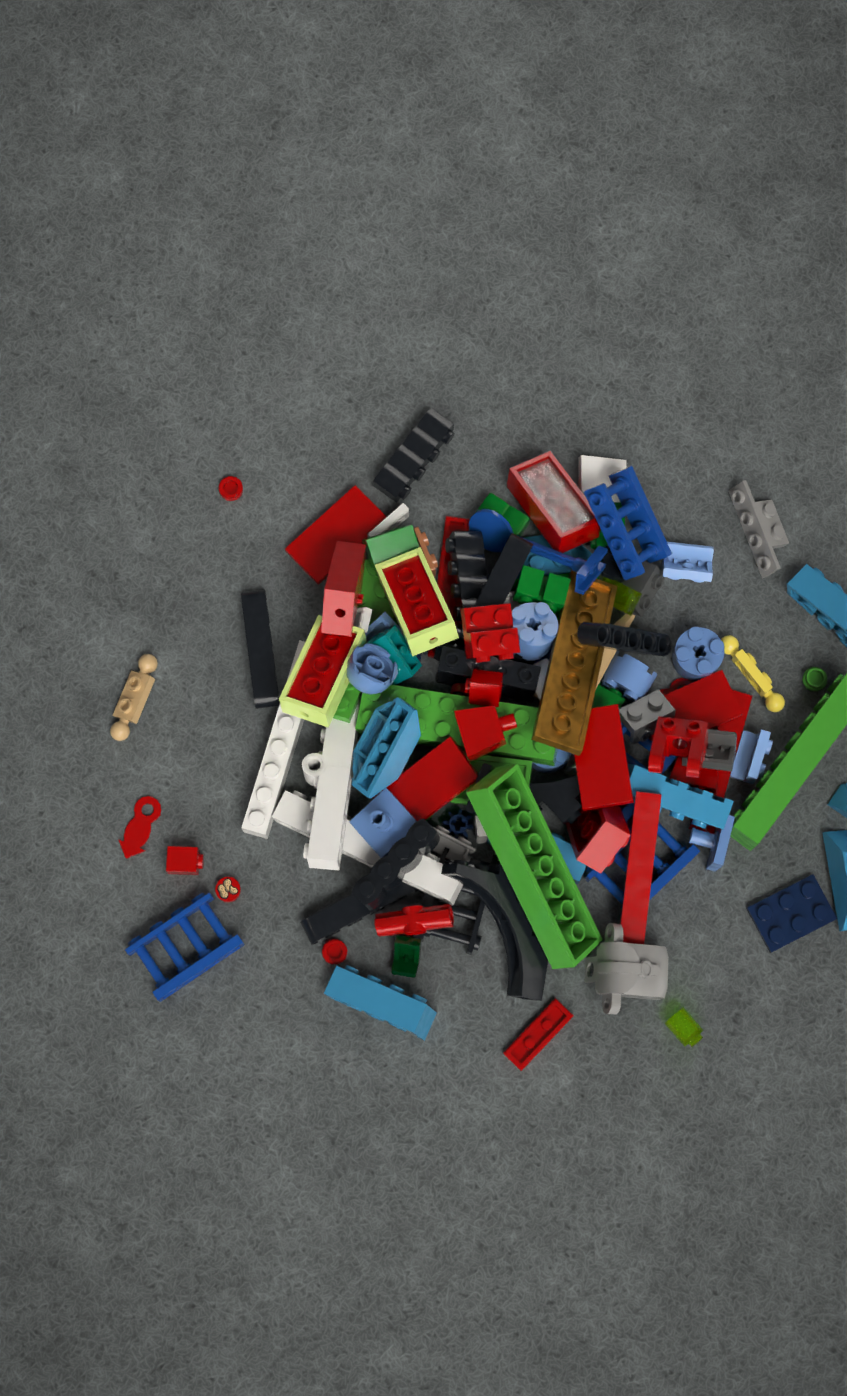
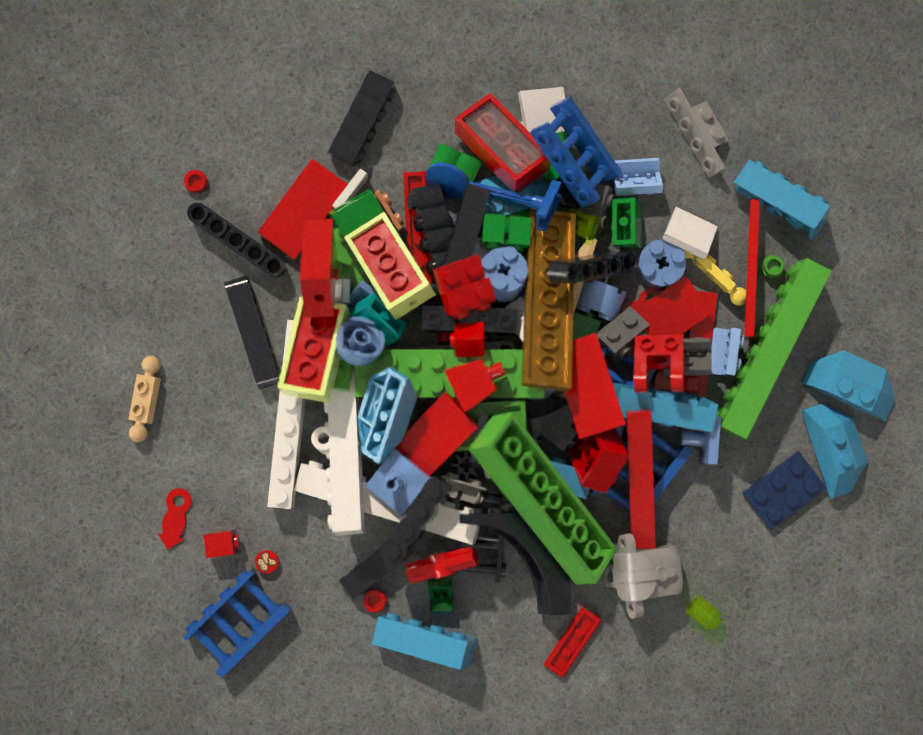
camera: 10 degrees left, 10 degrees up
(257, 543) = (230, 231): none -> black beam
(669, 607) = (626, 223): none -> green brick
(733, 627) = (690, 233): none -> white tile
(792, 676) = (752, 269): none -> red tile

